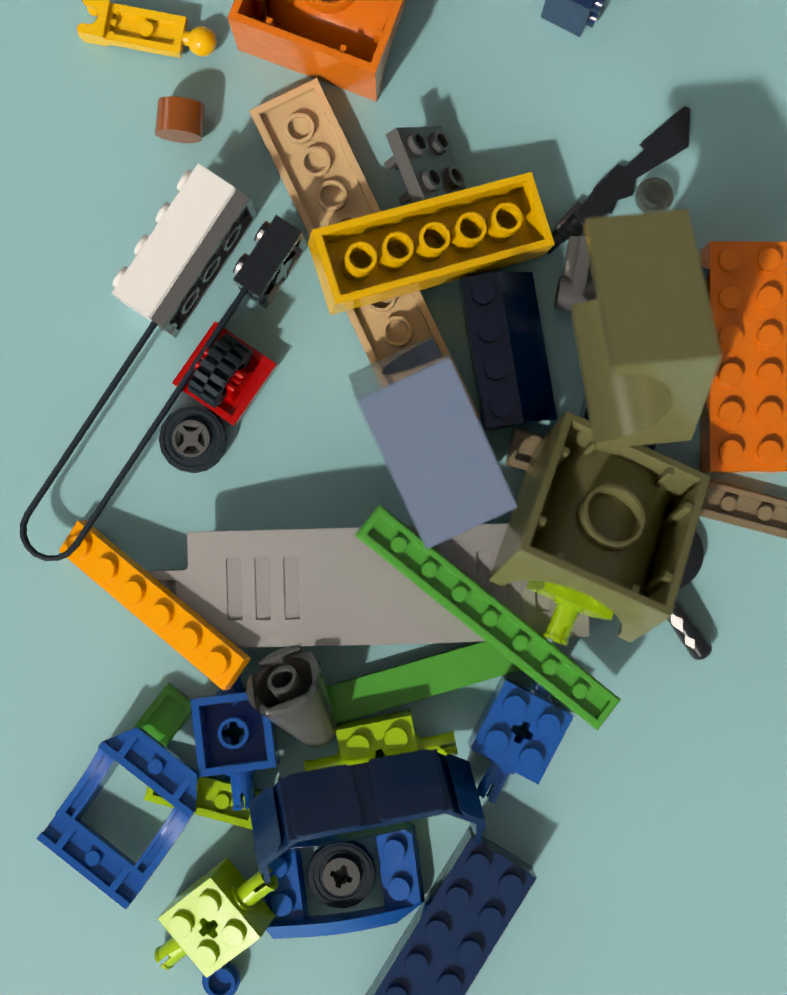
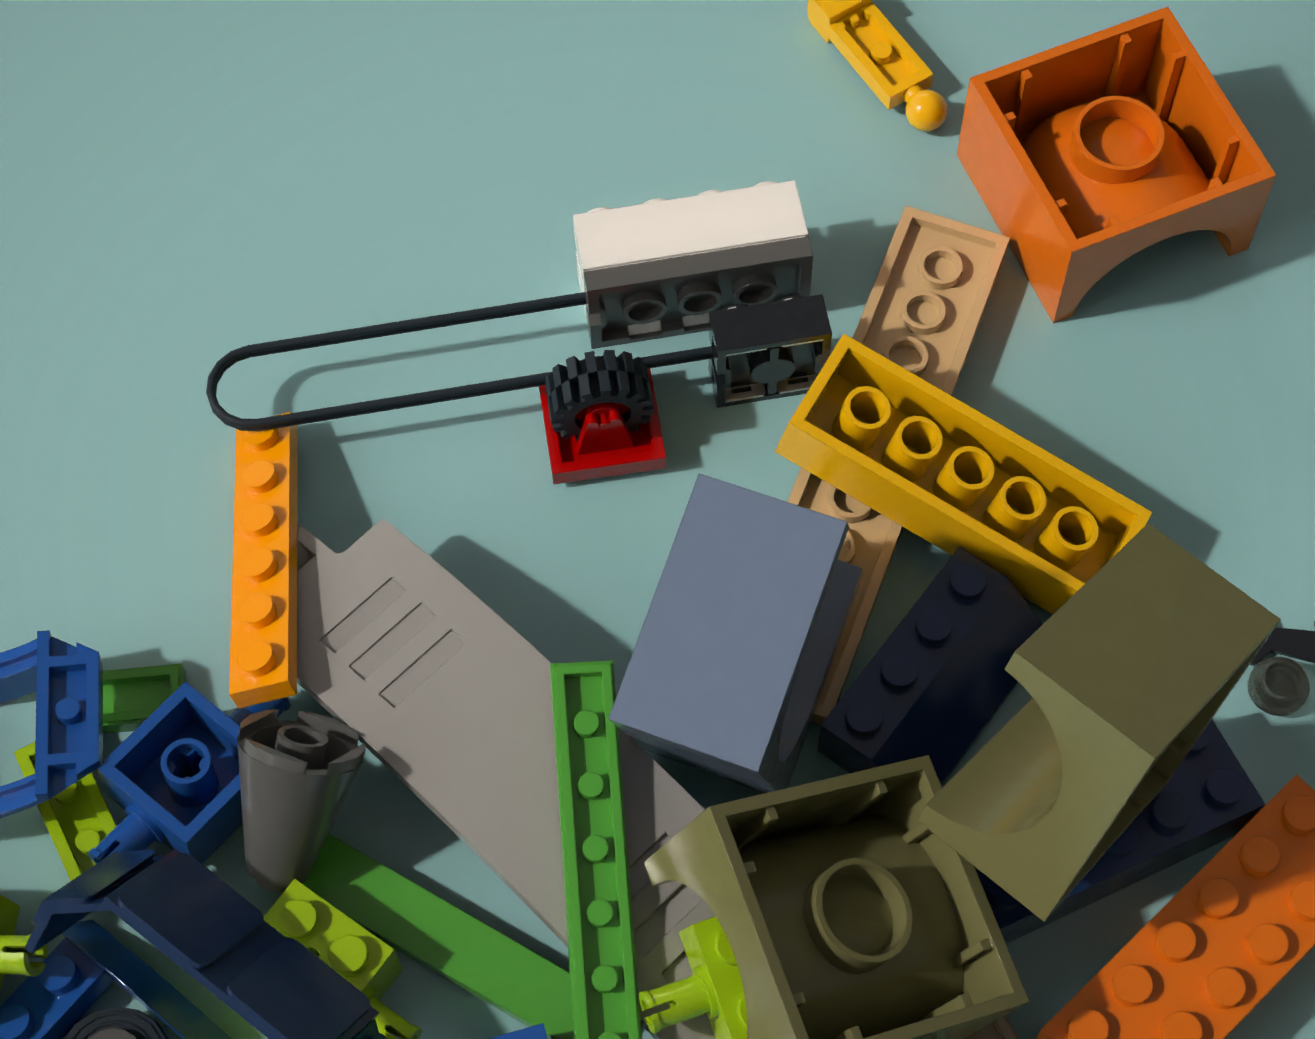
camera: 45 degrees right, 25 degrees down
(179, 119) = (824, 152): dark orange piece -> none
(183, 430) = (481, 436): black wheel -> none
(424, 163) = (1043, 398): dark grey plate -> none

